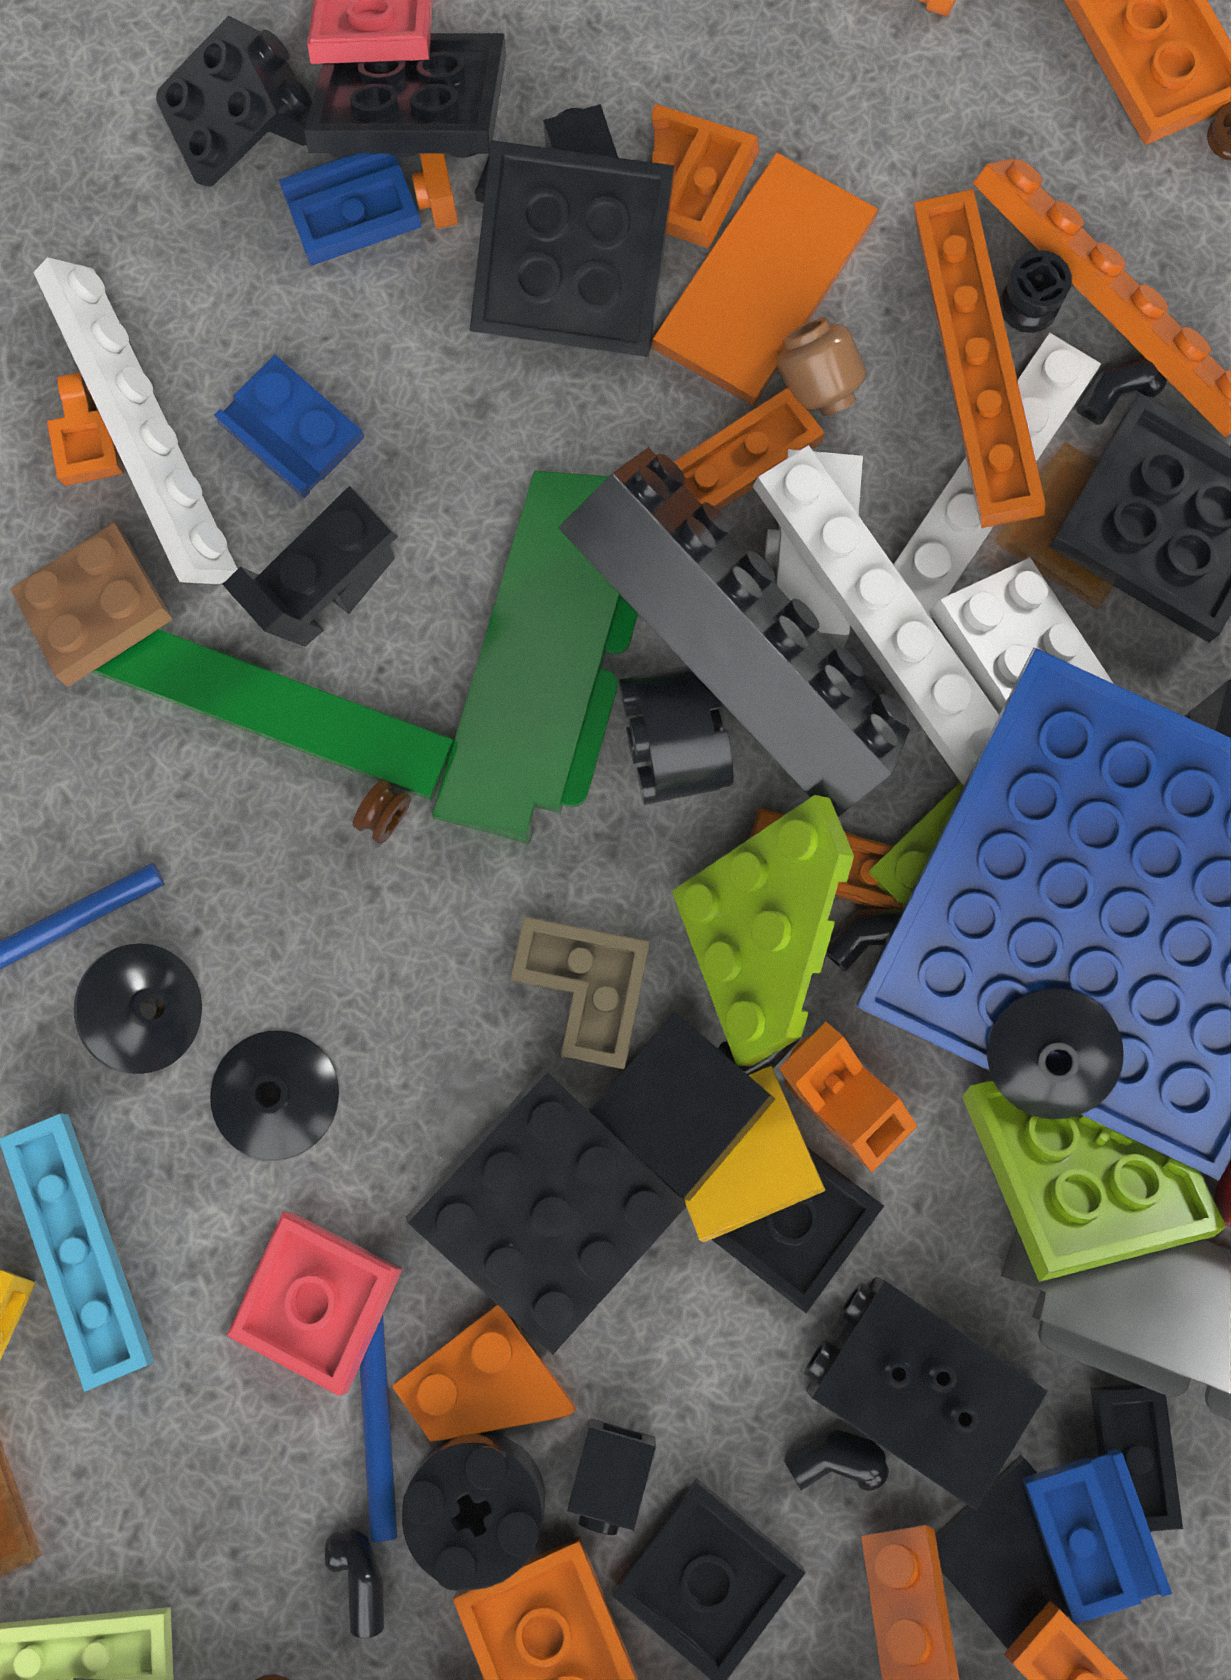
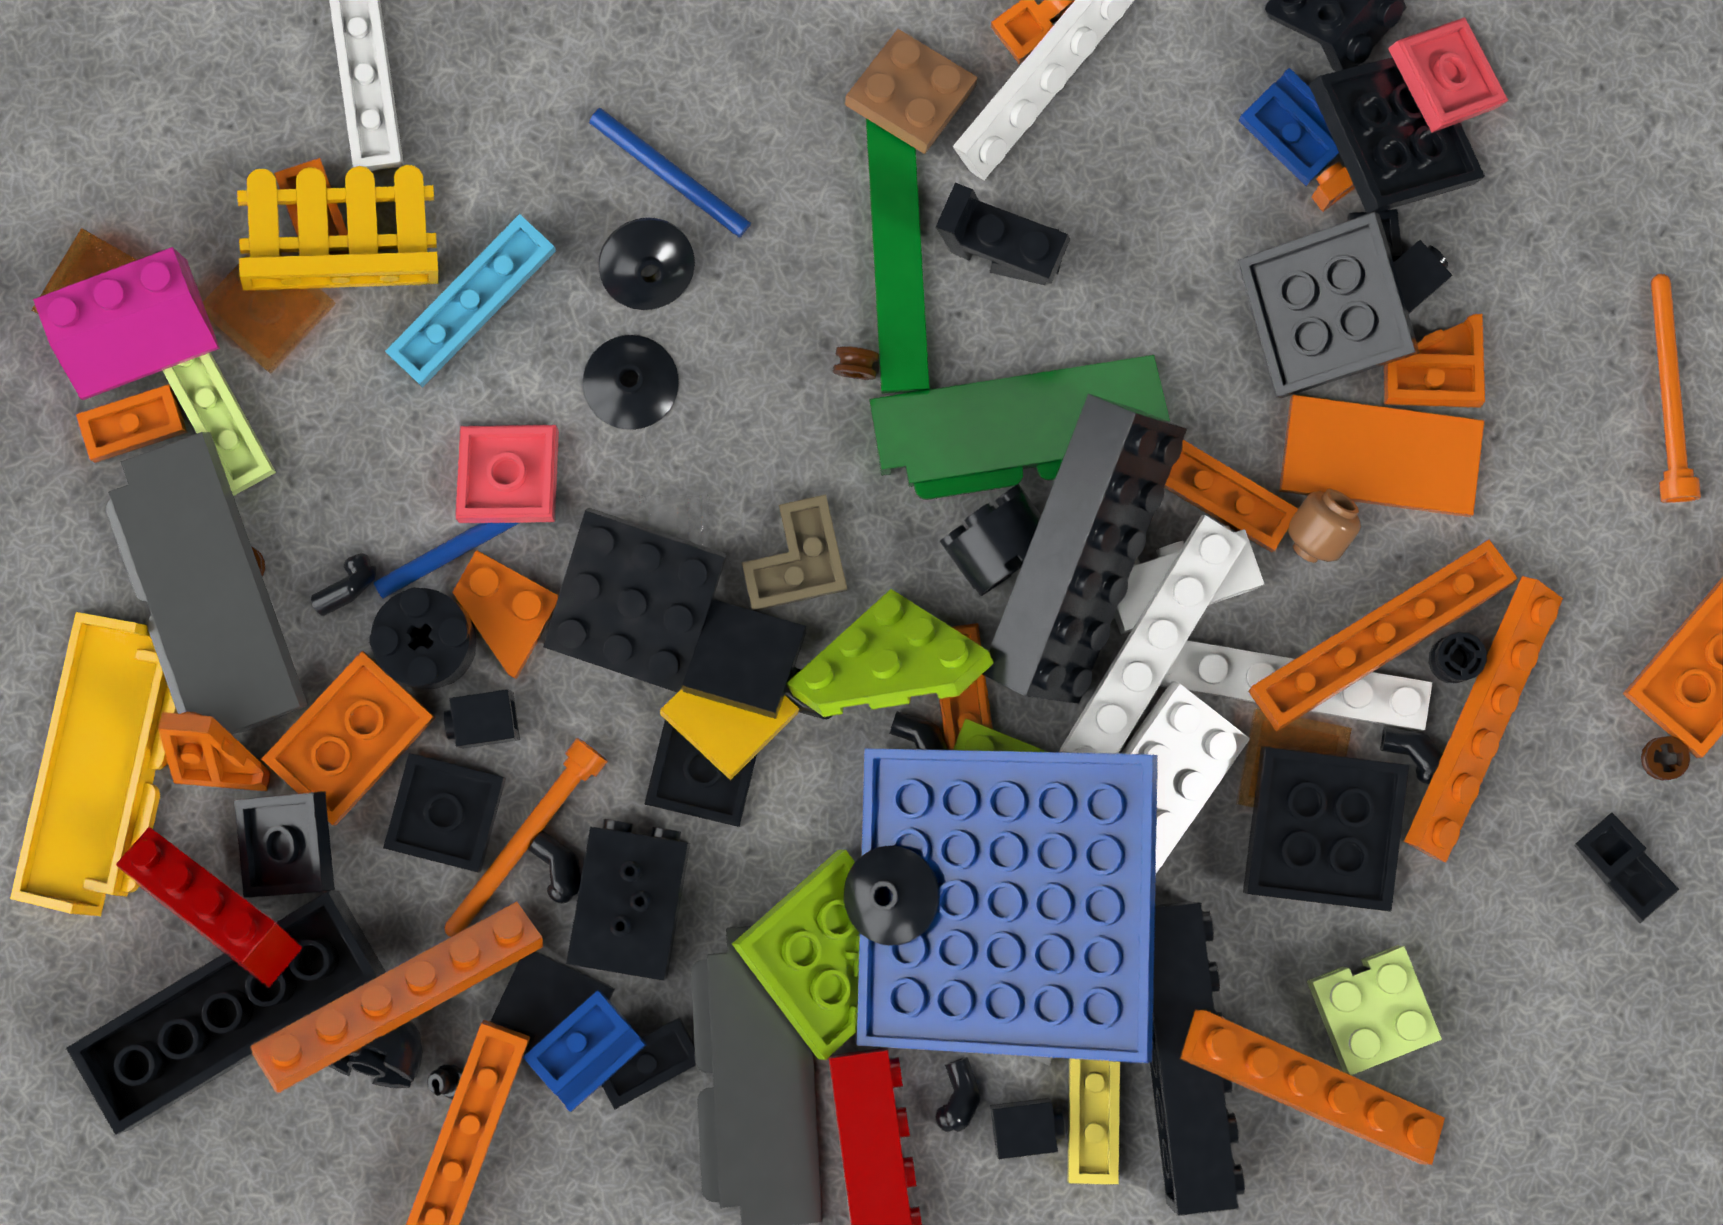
camera: 60 degrees right, 5 degrees up
(289, 426) = (1108, 164): blue plate -> none
(721, 1372) = (579, 765): none -> orange piece
(846, 1097) = (799, 767): orange brick -> none

